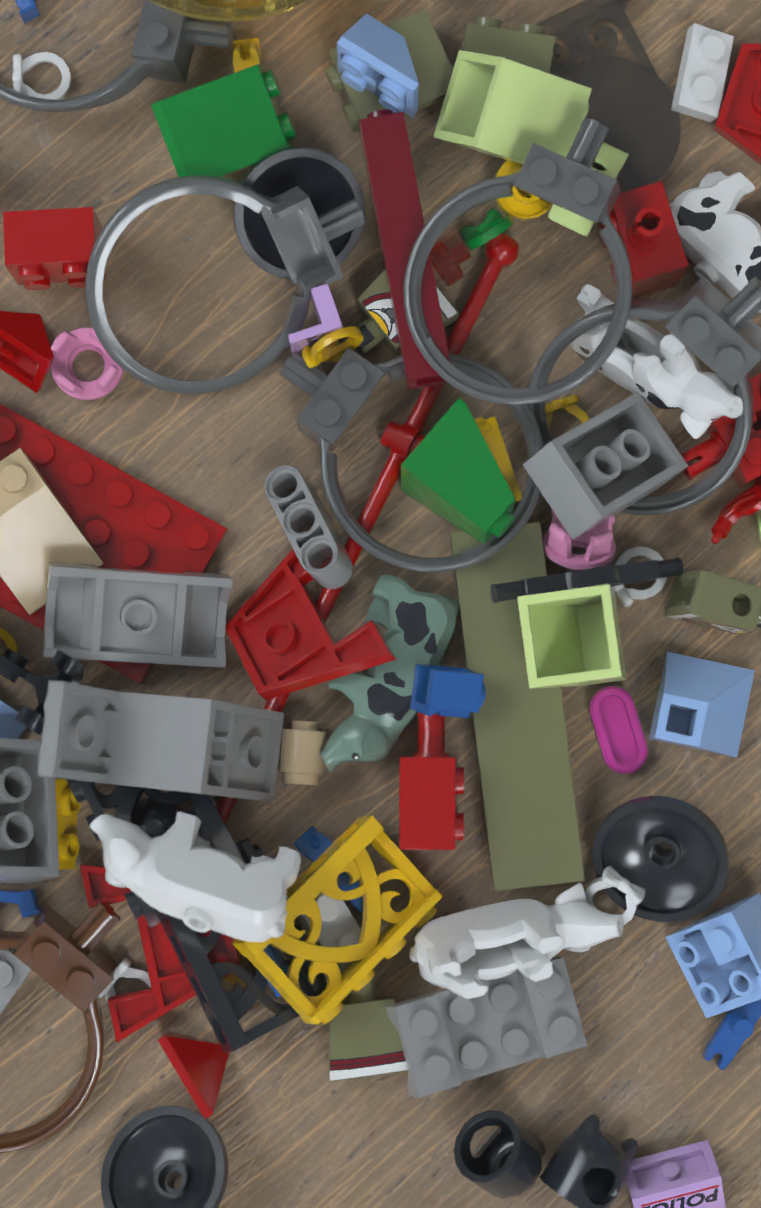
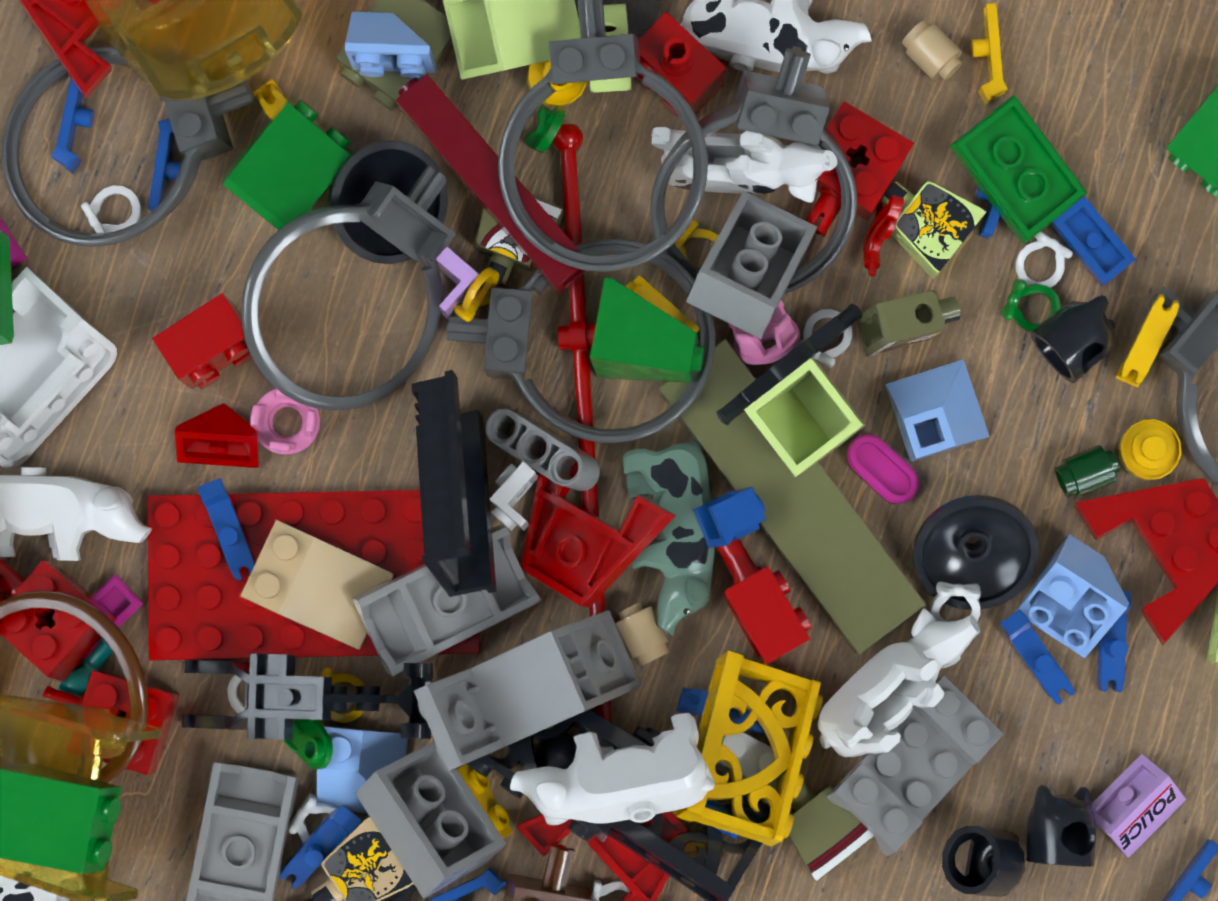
camera: 25 degrees left, 0 degrees up
(110, 64) = (163, 168): none -> blue piece
(201, 515) = (453, 489): none -> black piece
(261, 545) = (513, 485): none -> white bracket
(447, 261) = (530, 173): clear red tile -> none
(661, 989) = (1036, 656): none -> blue piece

